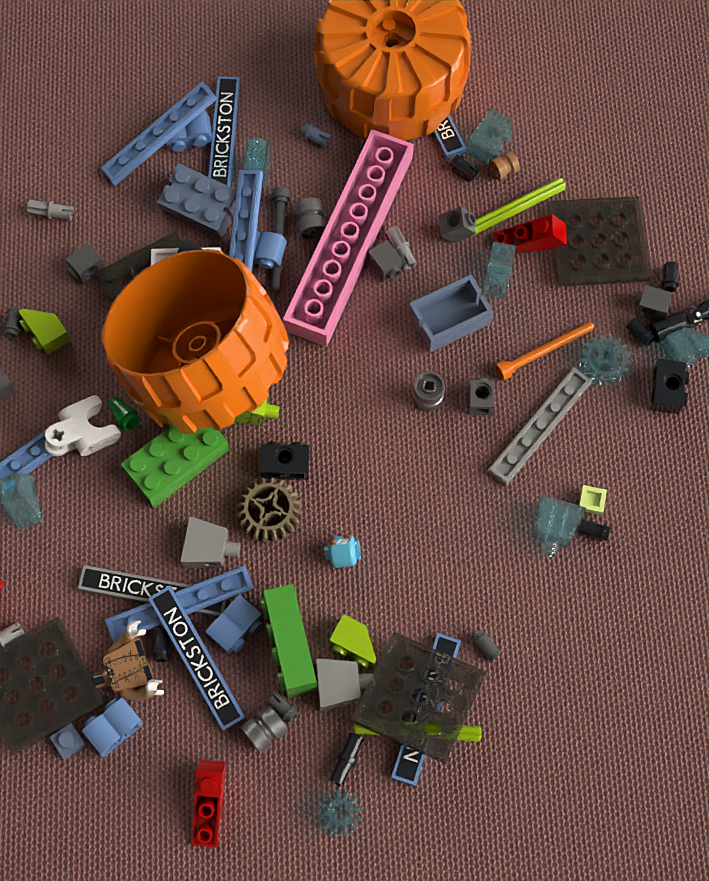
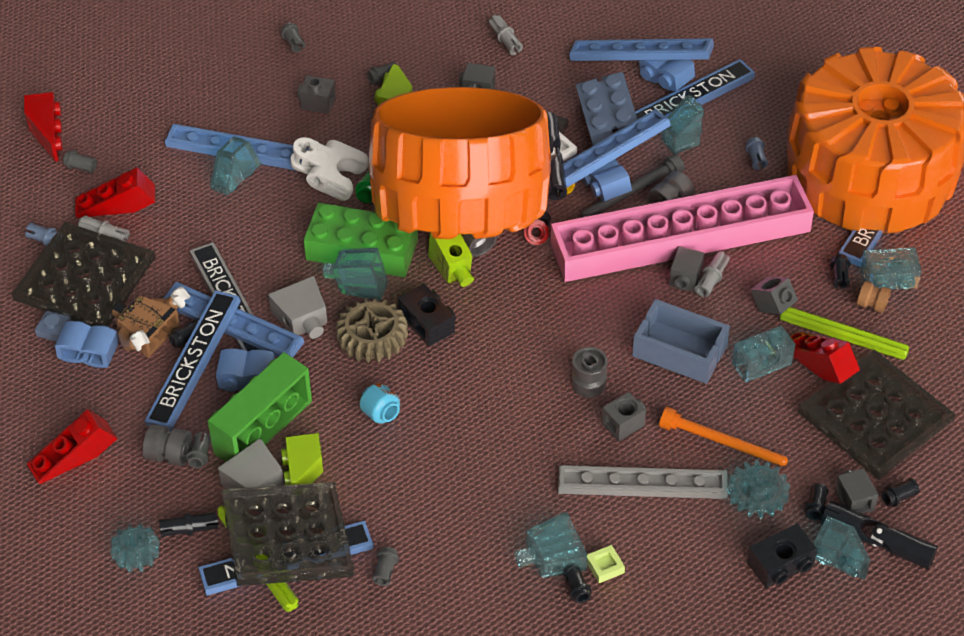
camera: 55 degrees right, 20 degrees down
(208, 483) = (358, 273): none -> clear light blue torso

